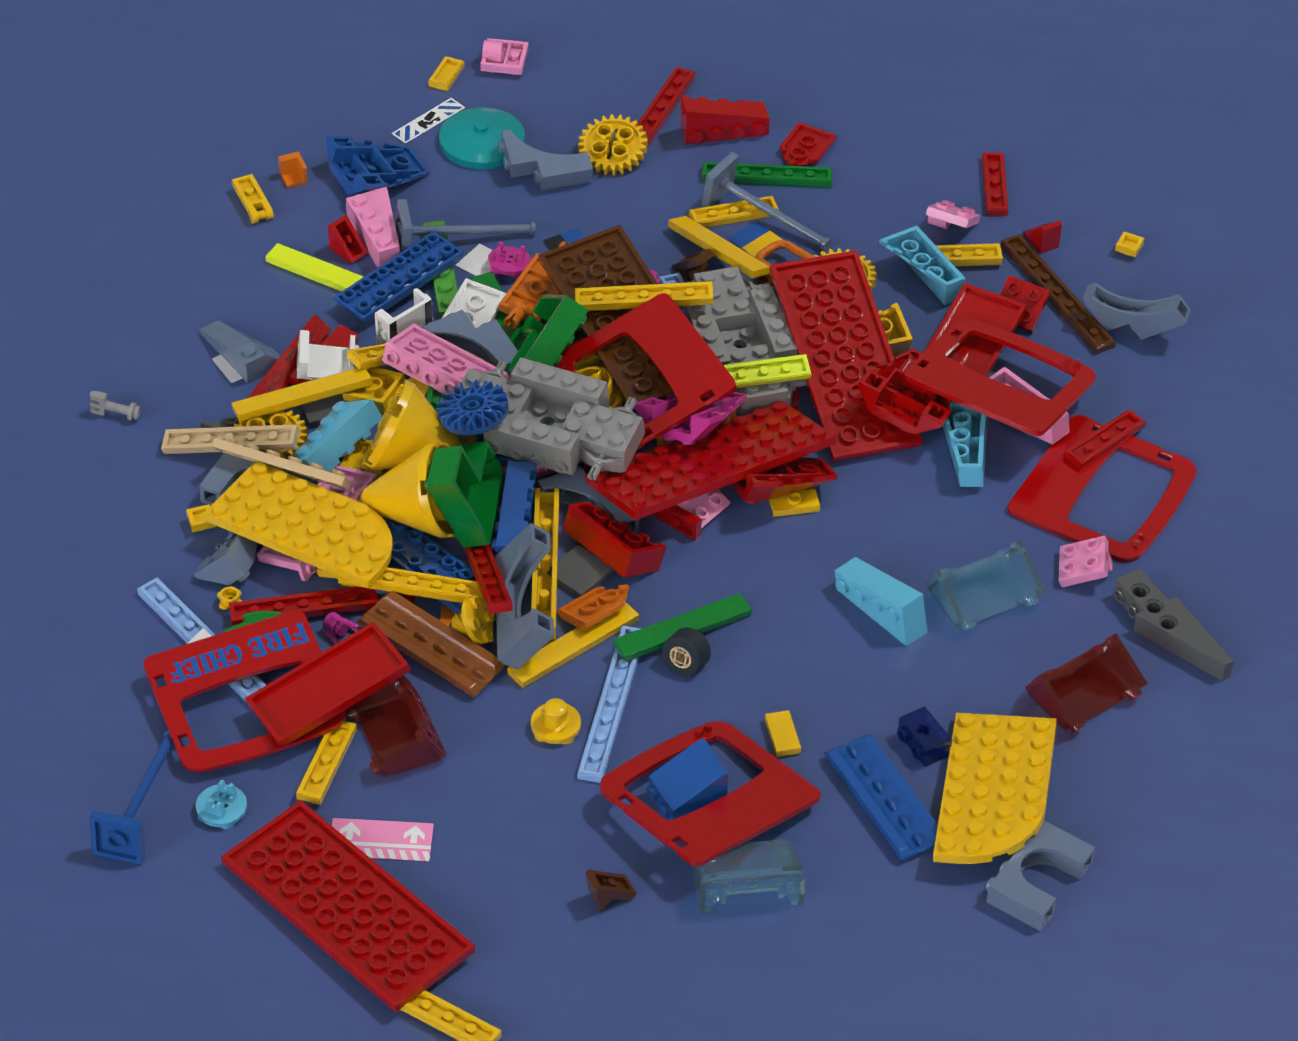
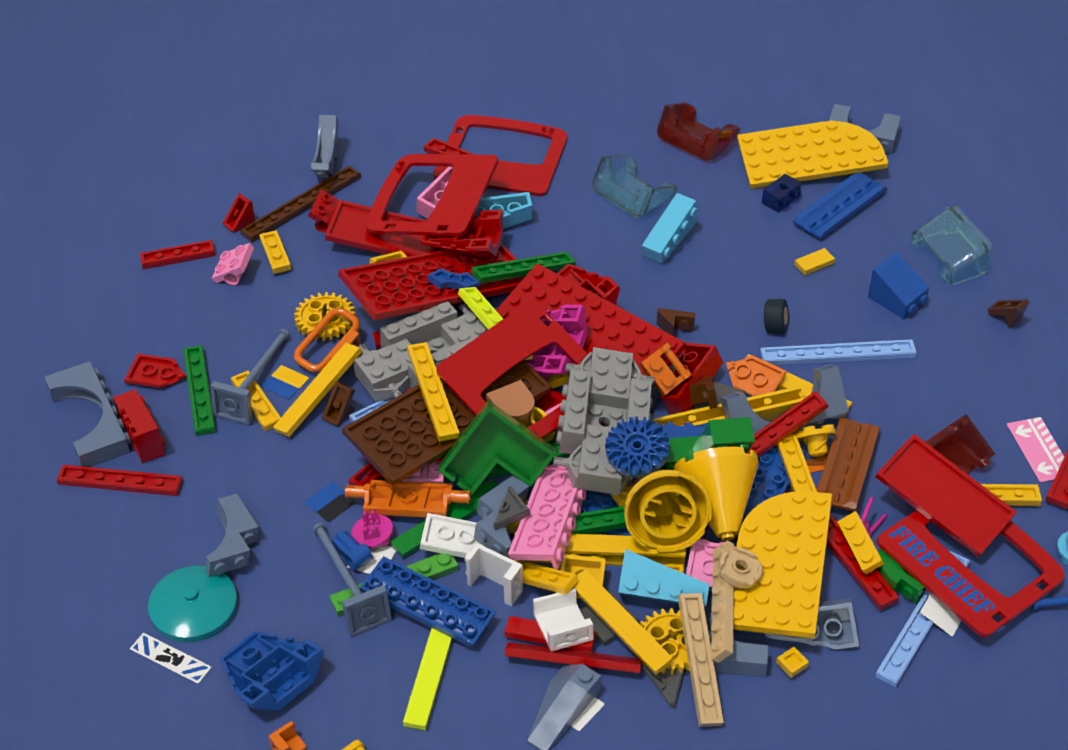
camera: 105 degrees left, 0 degrees up
(228, 595) = (870, 607): yellow plate -> none
(304, 486) = (736, 577): none -> tan tile
(308, 603) = (860, 542): none -> yellow plate
(345, 240) = (385, 663): red slope -> none
(375, 224) = (361, 640): bright pink wedge -> none
(446, 73) = (93, 660): yellow tile -> none
(469, 338) = (511, 510): none -> dark grey tile
(484, 243) = (353, 552): none -> blue piece
(504, 56) = (61, 615): bright pink plate -> none
(555, 722) = (877, 375): yellow plate -> none
(576, 542) = (703, 392): none -> reddish brown slope
(606, 492) = (663, 376): none -> orange plate
(614, 364) = (513, 399): none -> nougat tile
(627, 149) = (194, 491): yellow gear -> none
(701, 619) = (750, 327): green tile -> none
(717, 560) = (670, 320): none -> reddish brown slope
(726, 822) = (922, 255): red door -> none
(799, 94) = (107, 438): none -> sand blue arch
(826, 368) = (446, 279): none -> blue tile
(850, 441) = (520, 267): none -> green plate
(926, 262) = (300, 264): medium azure wedge -> none
(1084, 561) = (584, 146): bright pink plate -> none
(1129, 244) = (237, 172): yellow plate -> none
(1170, 624) = (619, 106): dark grey brick -> none

